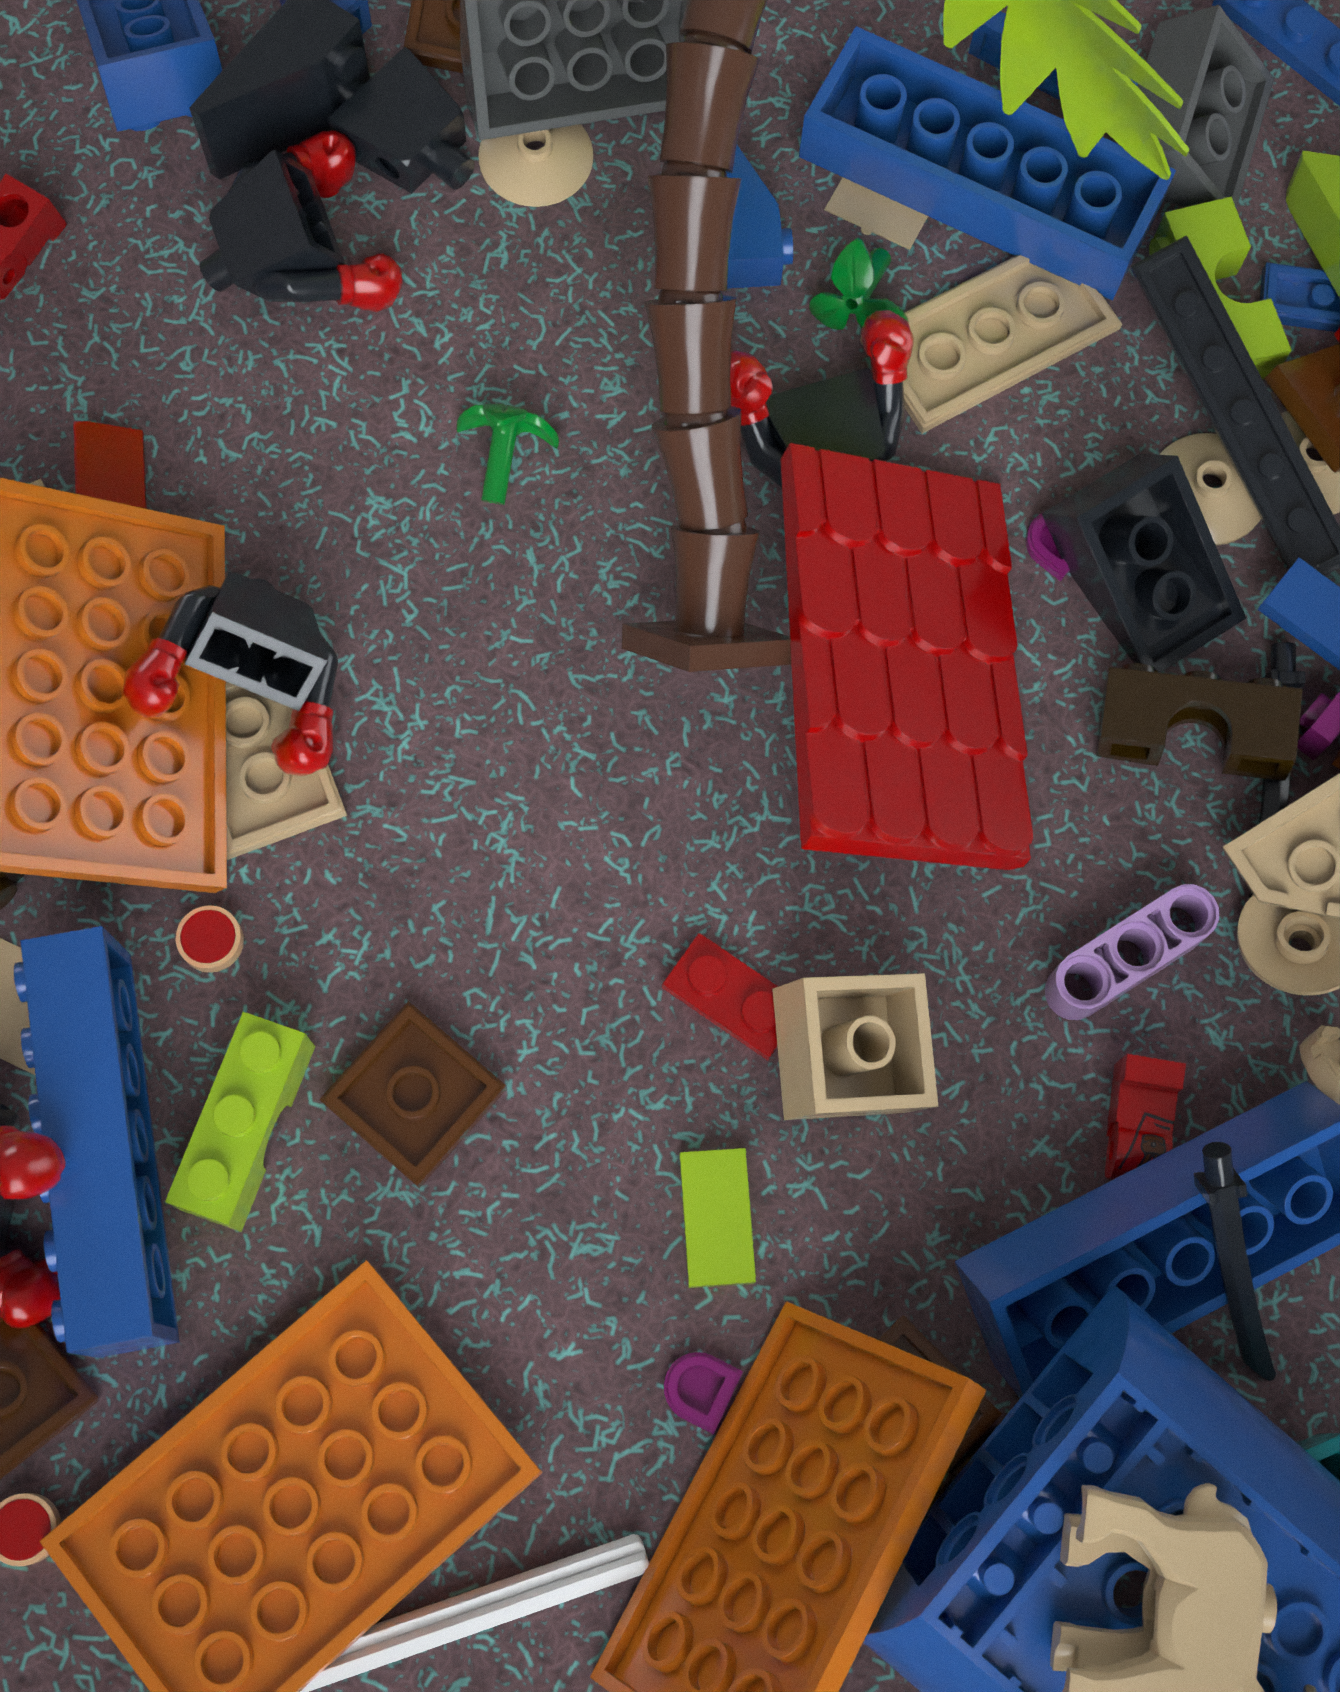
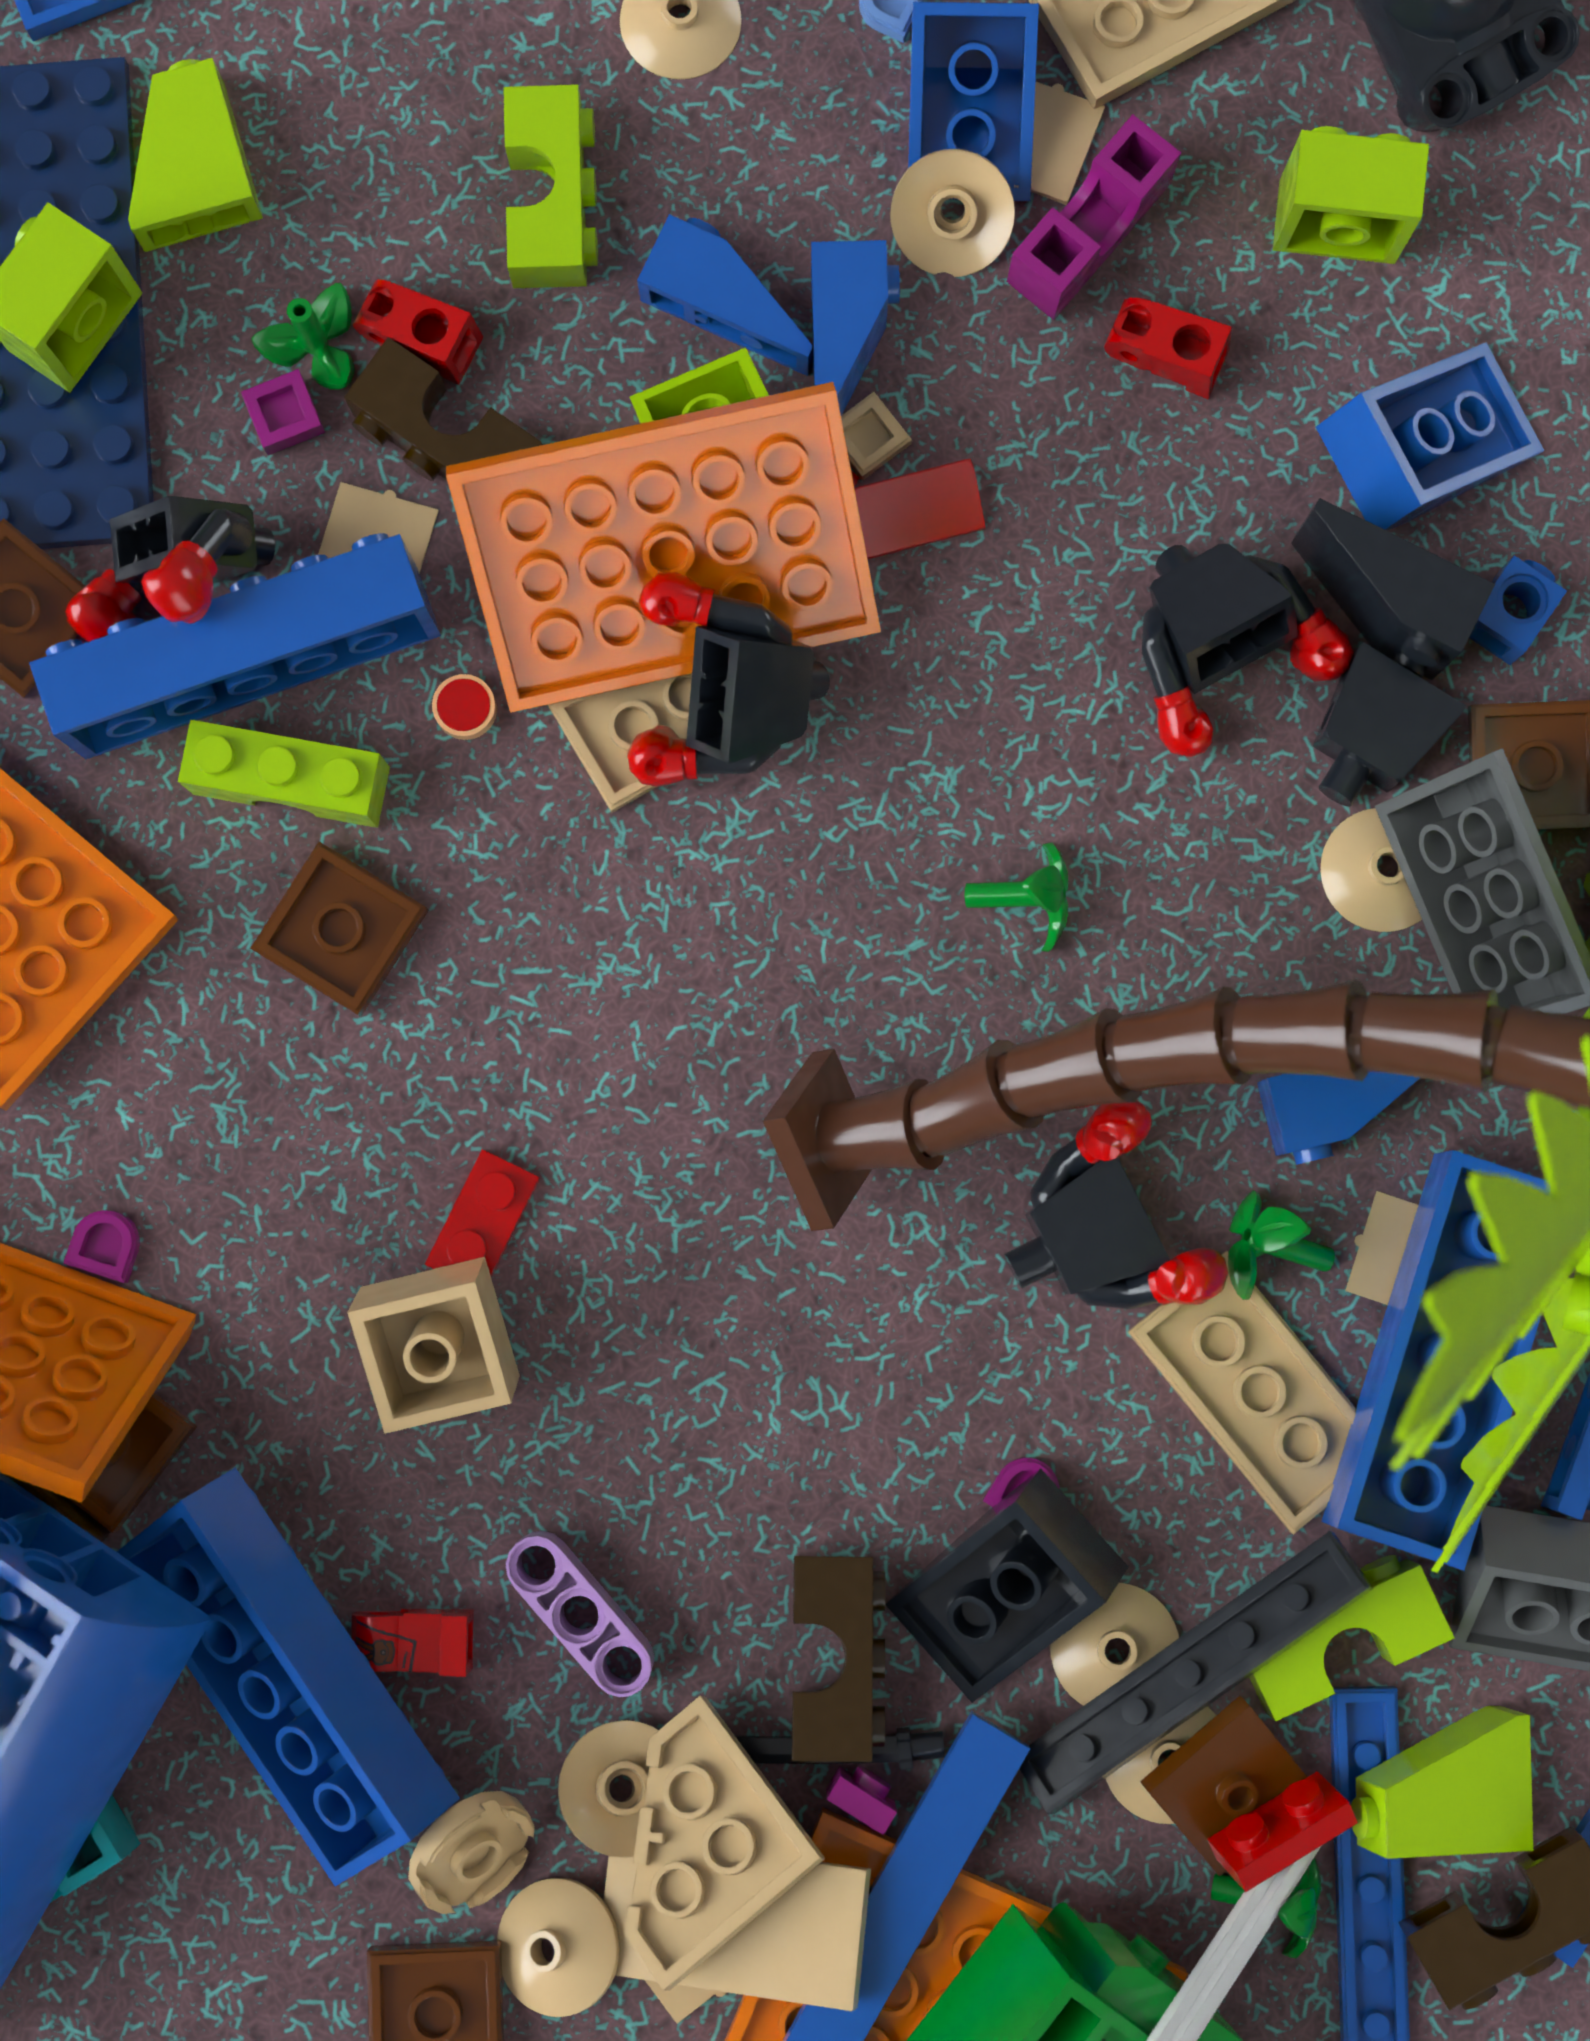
camera: 85 degrees right, 10 degrees up
(717, 1218) = (265, 1237): lime tile -> none
(903, 663) = (848, 1341): red piece -> none
(1221, 1189) = (308, 1716): black sword -> none

